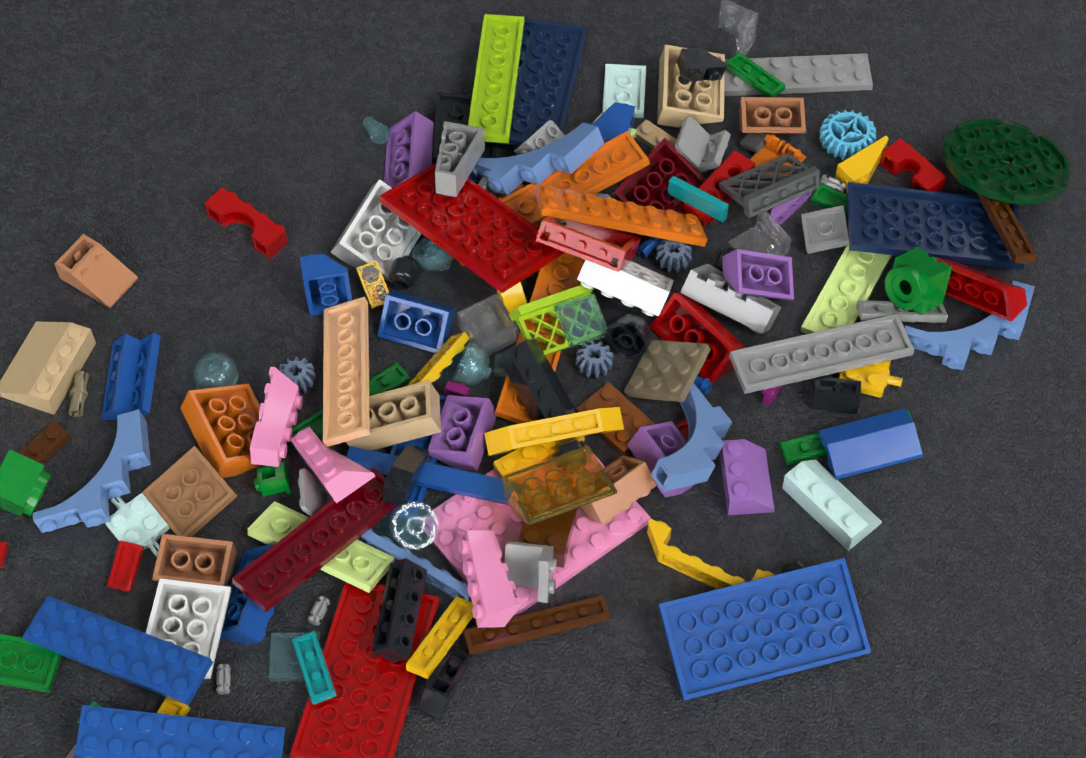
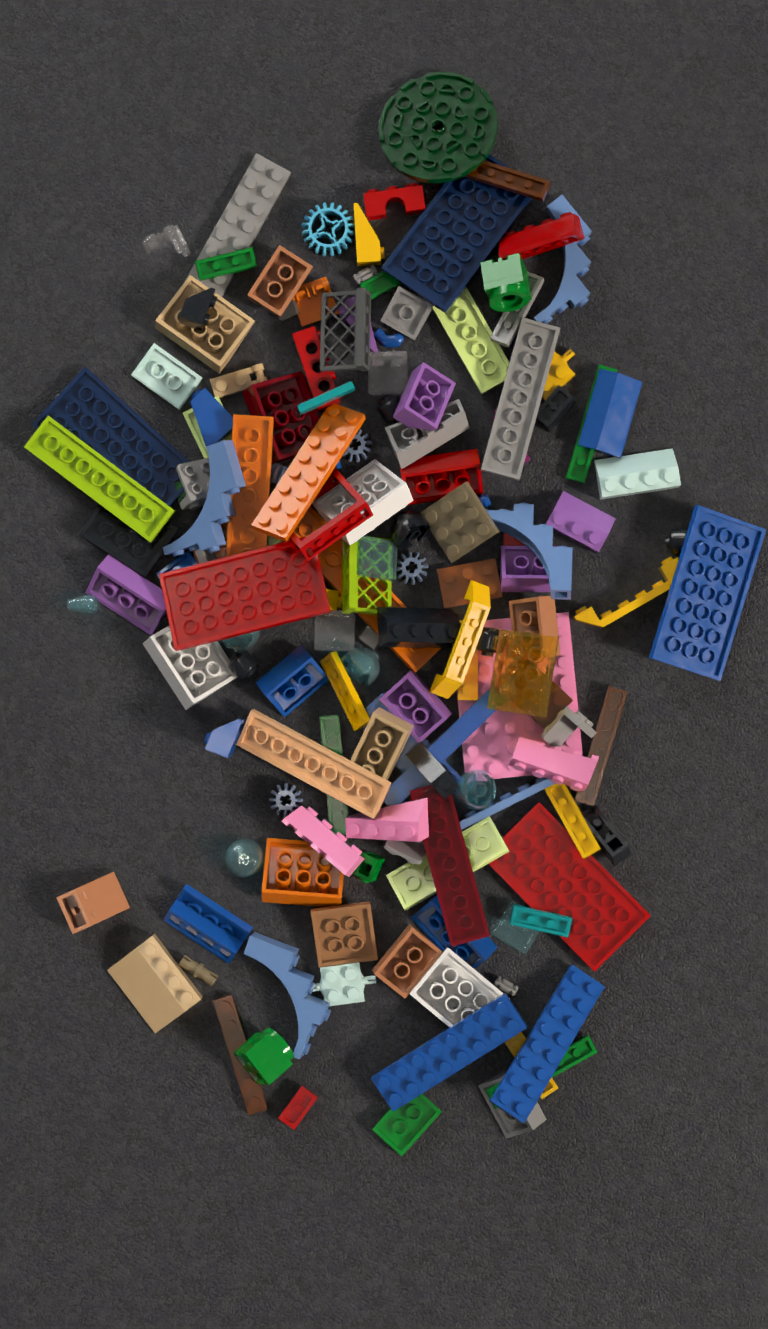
camera: 60 degrees left, 30 degrees up
(125, 566) = (374, 1010): red tile -> none
(227, 209) = (90, 768): red arch -> none
(318, 610) = (493, 890): light grey piece -> none
(373, 283) = (239, 694): tile -> none
(399, 610) = (539, 839): black brick -> none
(457, 156) = (170, 562): light grey wedge -> none
(457, 389) = (376, 687): magenta plate -> none
(700, 147) = (268, 354): light grey bracket -> none
(788, 227) = (389, 340): none -> blue arm

